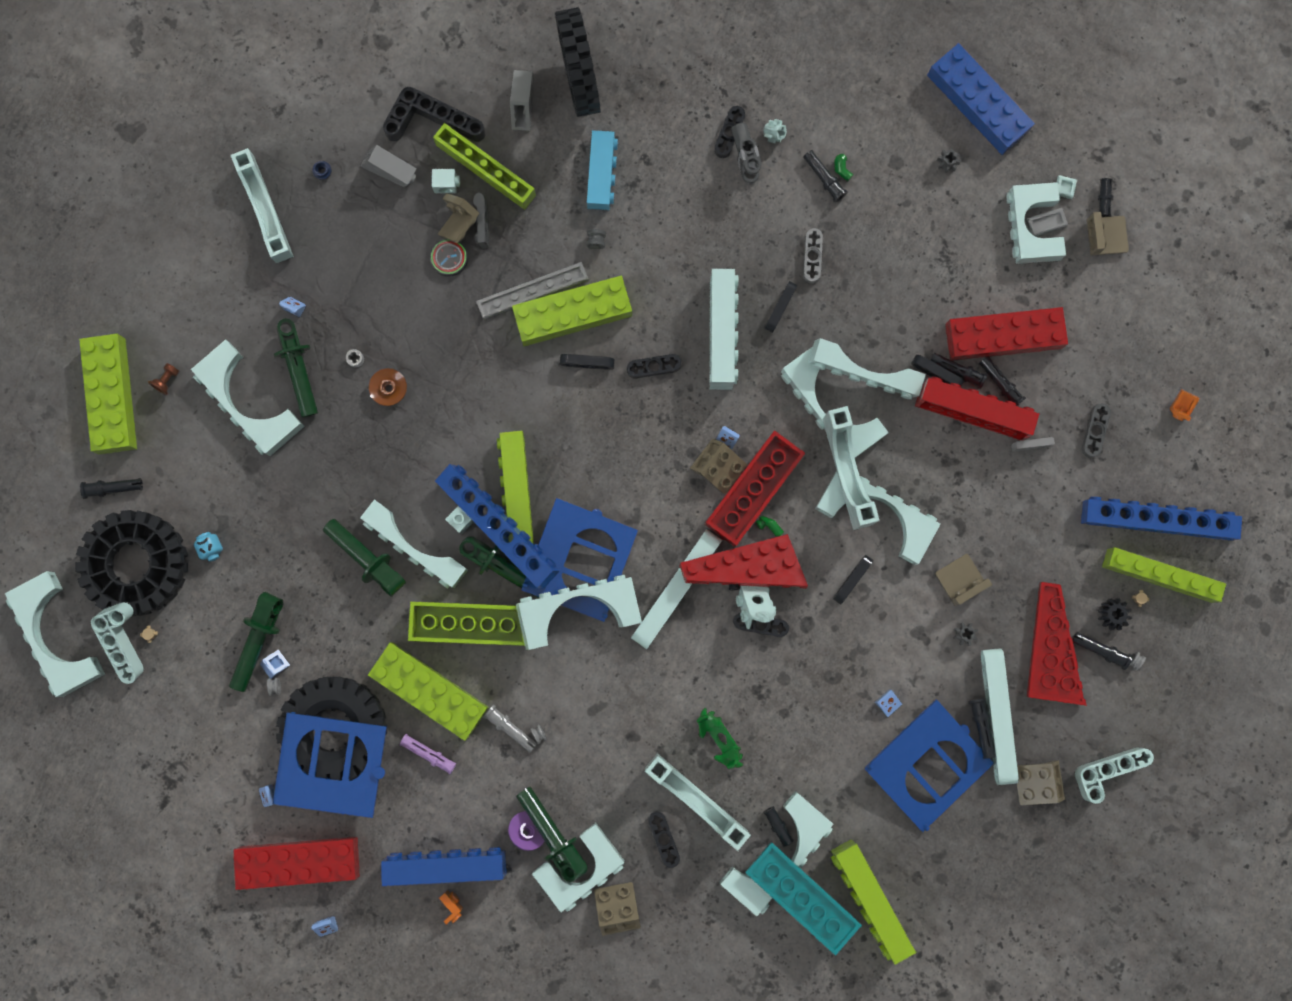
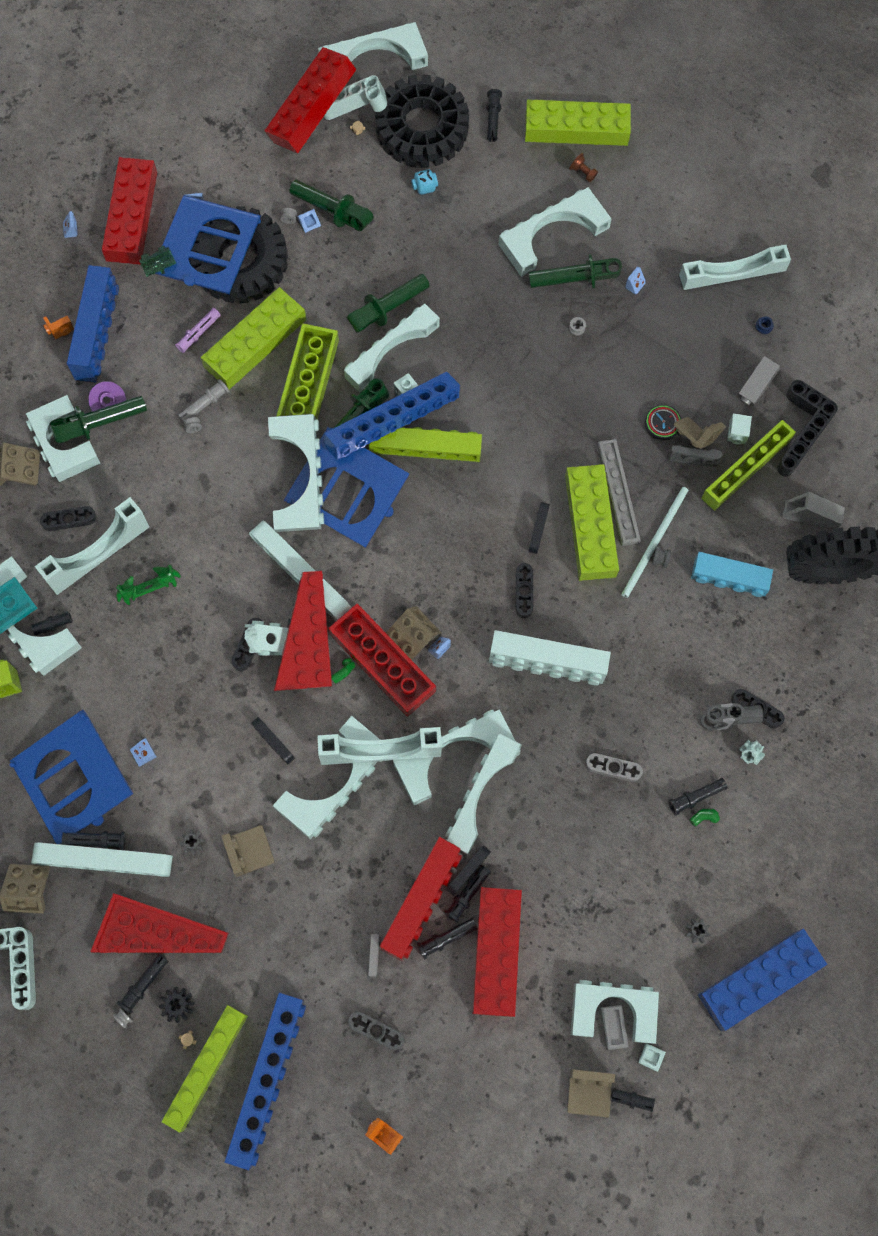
camera: 100 degrees right, 10 degrees down
(129, 689) = (310, 100): none -> red brick
(364, 810) = (158, 261): none -> clear green hips
(381, 380) = (548, 342): dark orange dish -> none
(578, 248) = (655, 541): none -> light aqua piece
(781, 306) = (564, 723): black beam -> none

